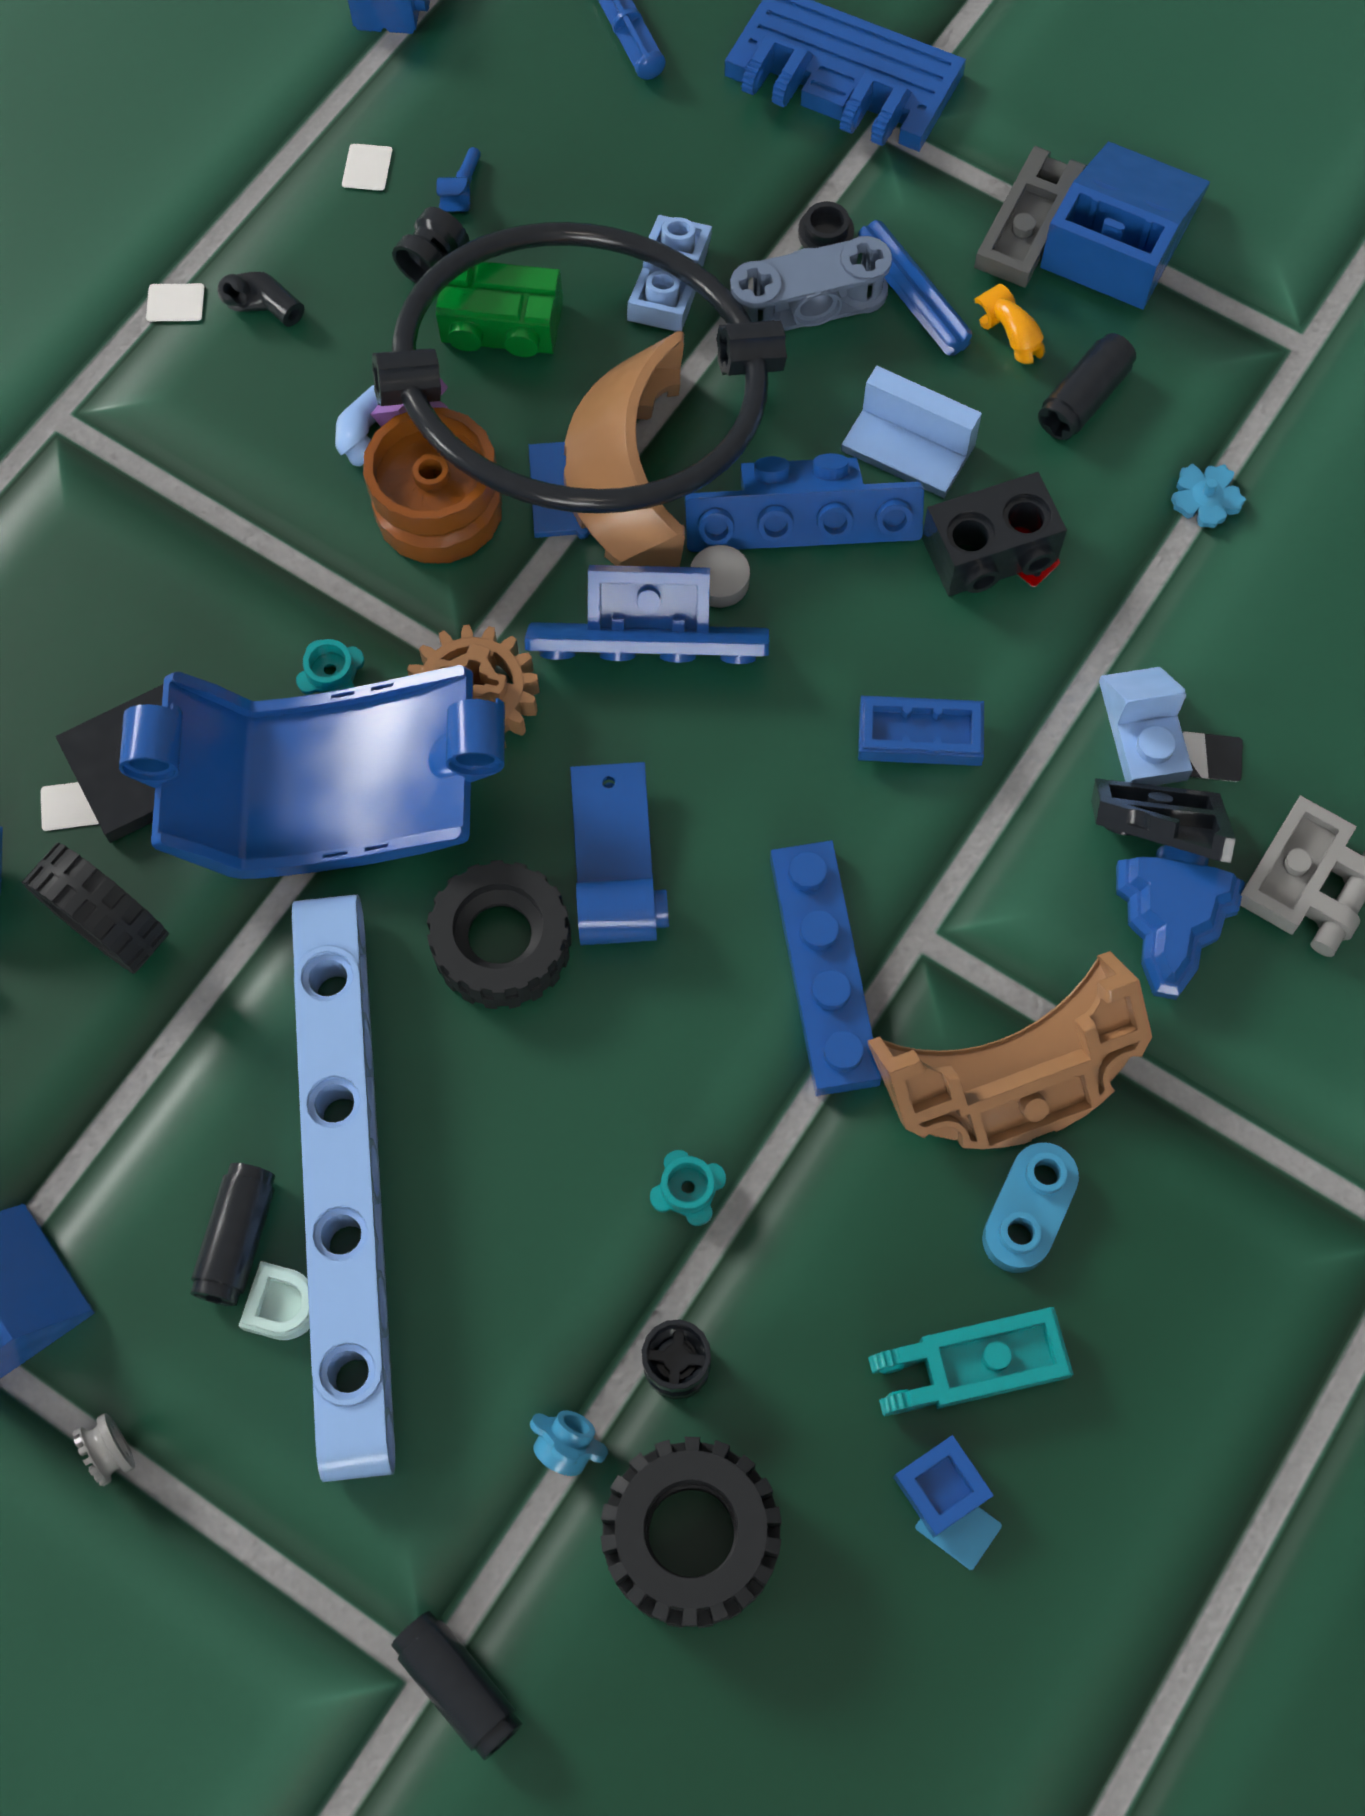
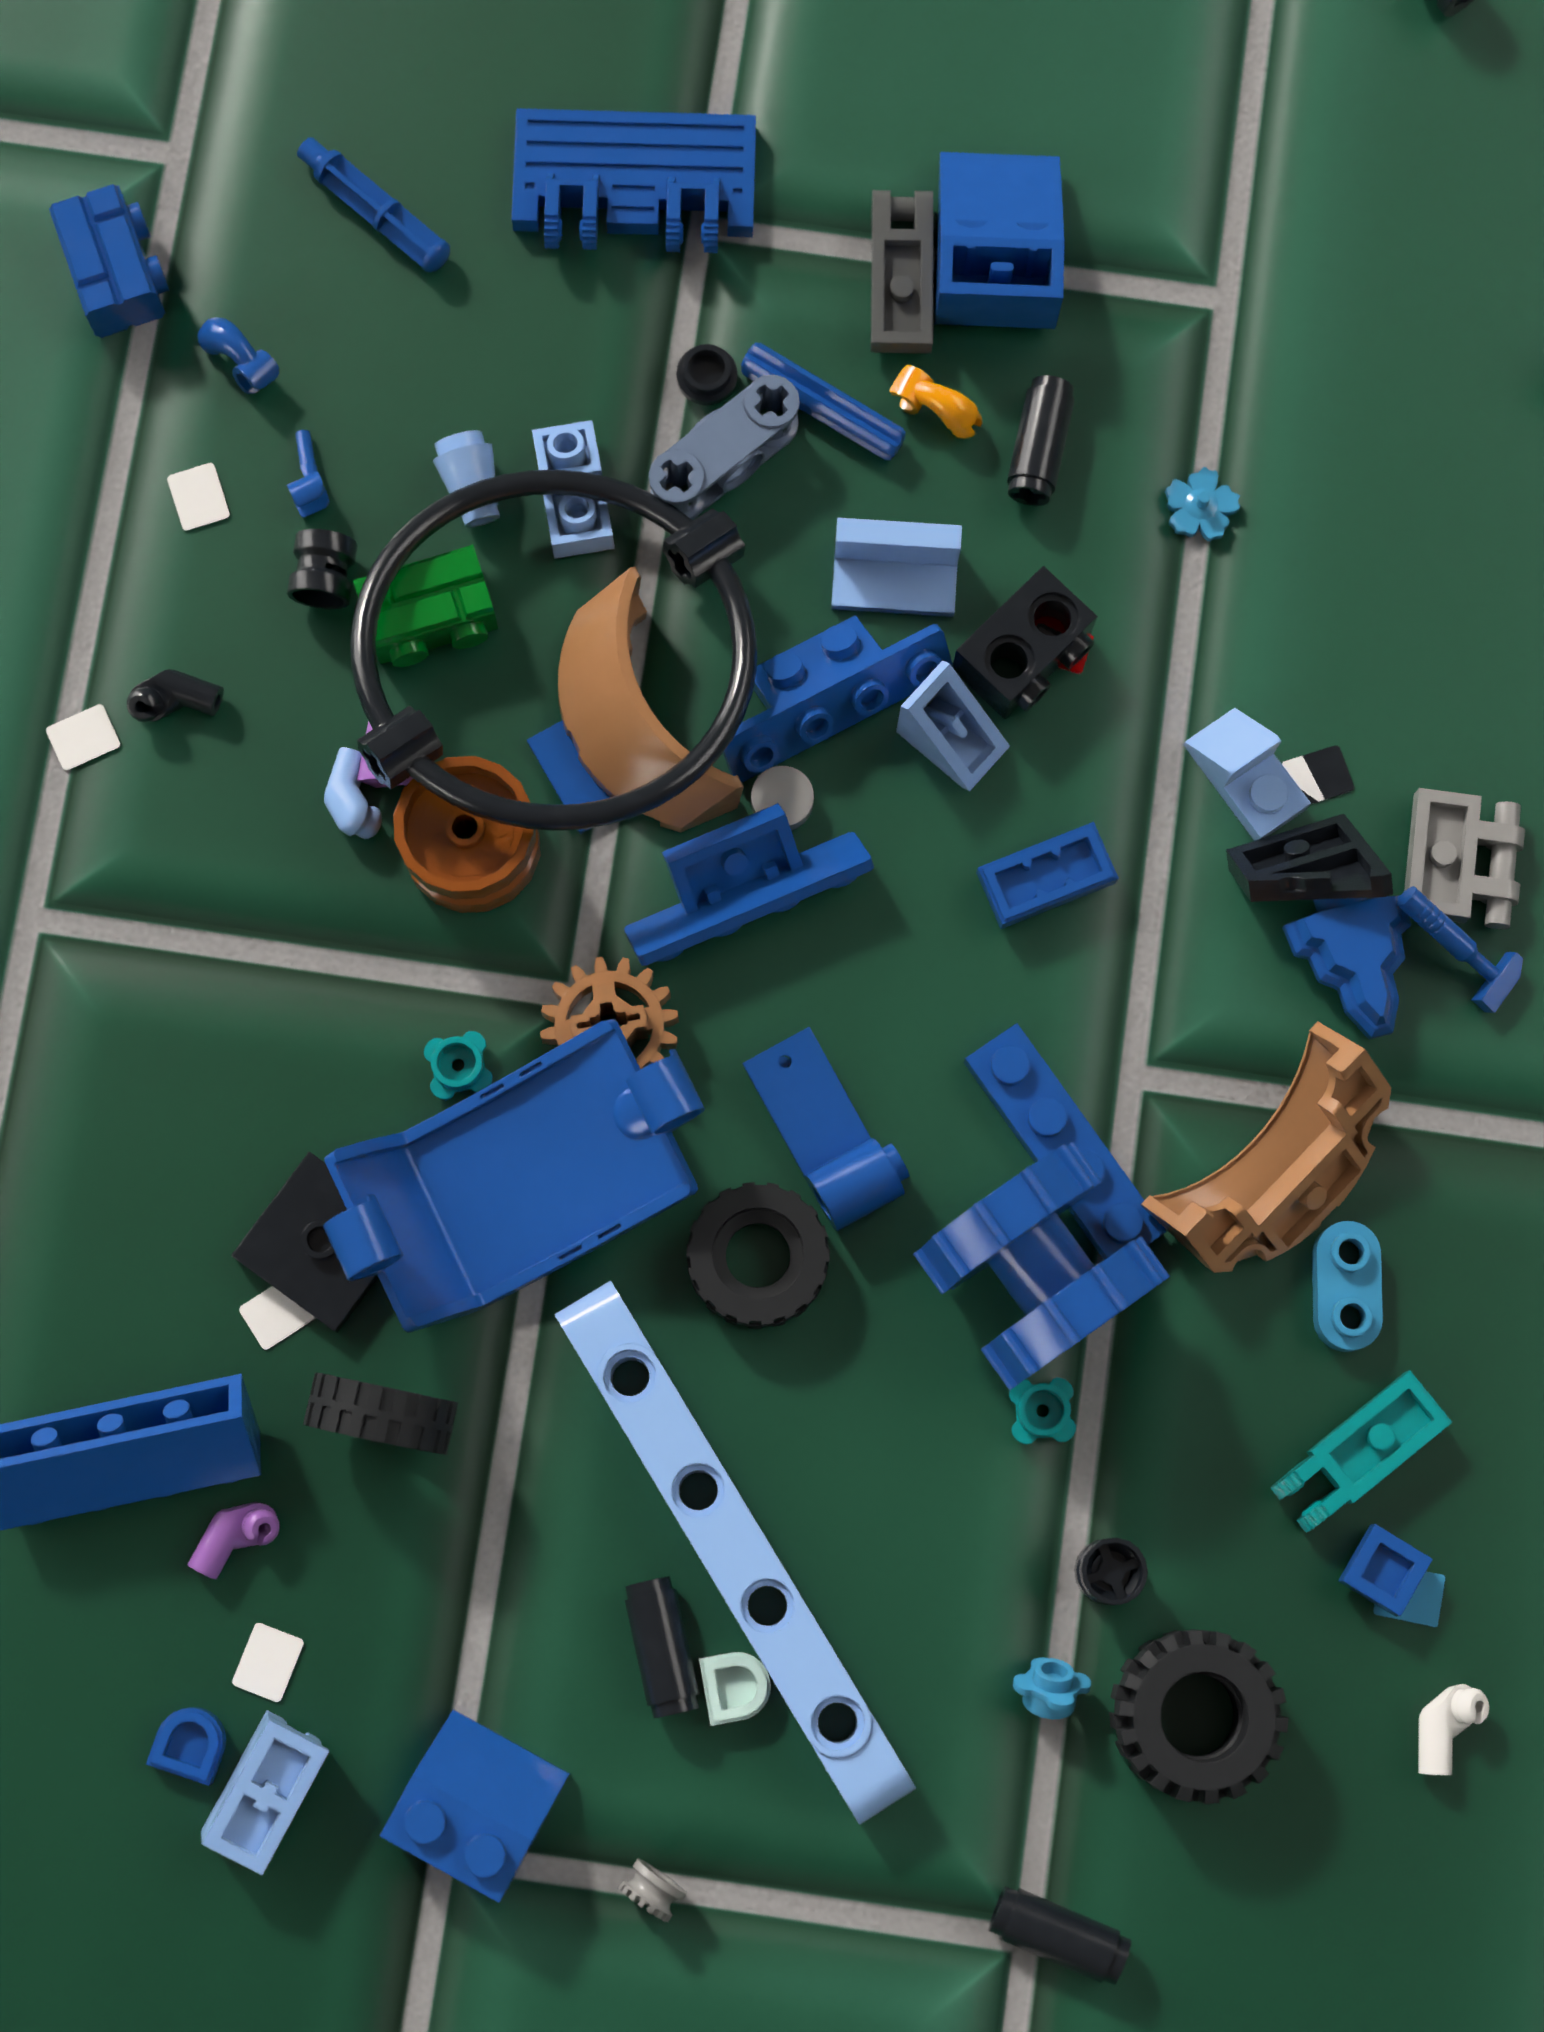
camera: 30 degrees left, 10 degrees up
(459, 88) = (253, 367): none -> blue arm
(589, 205) = (463, 461): none -> light blue cone
(734, 998) = (1040, 1263): none -> blue piece
(893, 570) = (951, 727): none -> light blue slope
(935, 1663) = (1442, 1721): none -> white arm
(1280, 952) = (1499, 978): none -> blue piece

